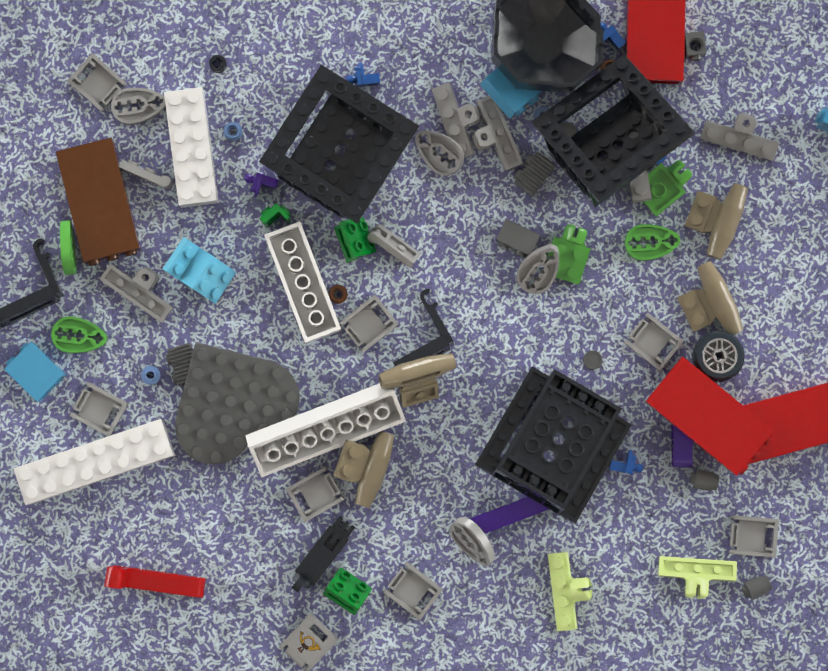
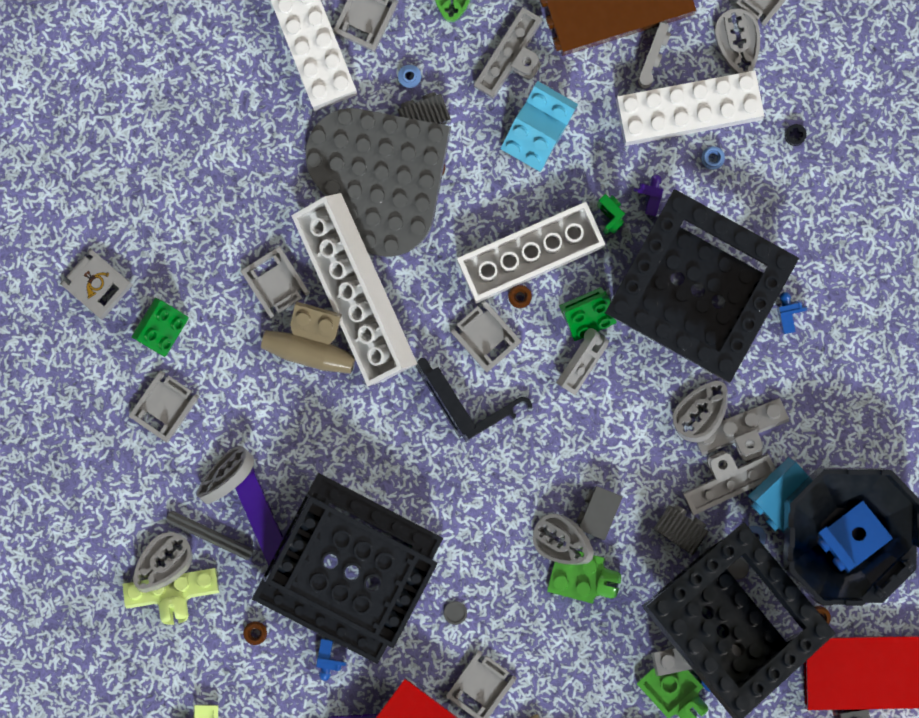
camera: 95 degrees right, 0 degrees up
(150, 580) = (163, 51): red beam -> none
(321, 555) = (200, 293): black hinge -> none
(417, 378) = (420, 397): dark tan plate -> none
(520, 557) = (209, 535): none -> dark grey axle
(532, 603) = (156, 551): none -> light grey piece
(557, 42) = (844, 547): none -> blue bracket
(606, 528) = (255, 625): none -> reddish brown plate
(613, 36) = (860, 619): blue piece -> none
(647, 231) = (617, 672): bright green piece -> none

